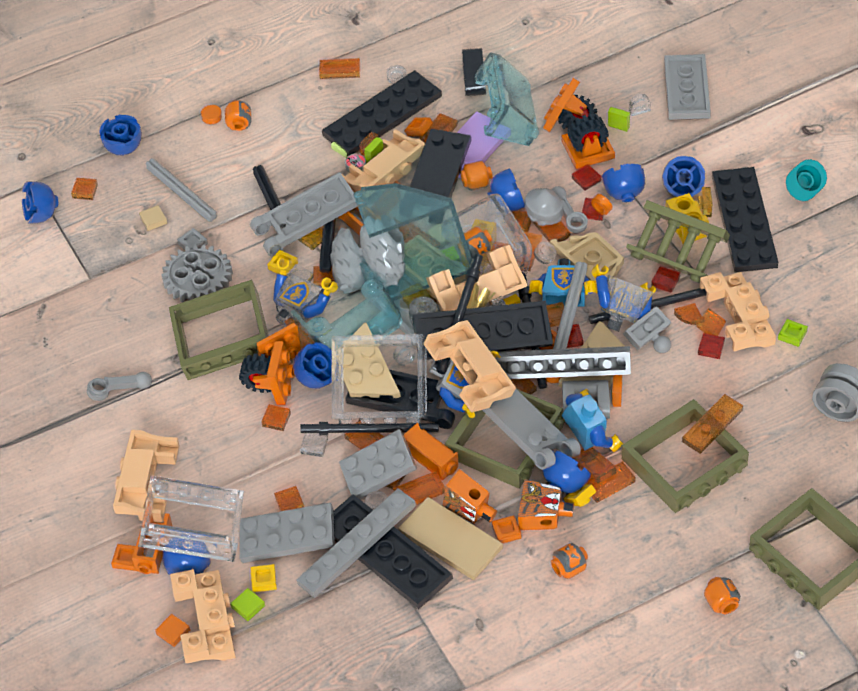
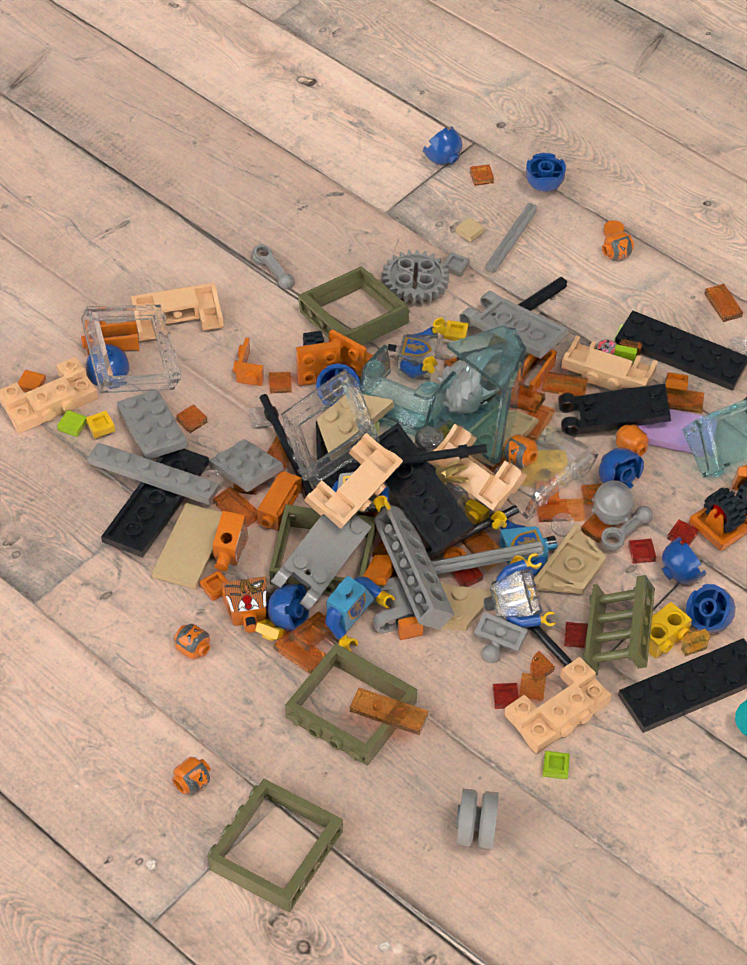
camera: 65 degrees right, 0 degrees up
(249, 442) = (246, 372): none -> orange bracket
(550, 391) = (380, 569): none -> orange tile
(601, 204) = (640, 549): orange tile -> none

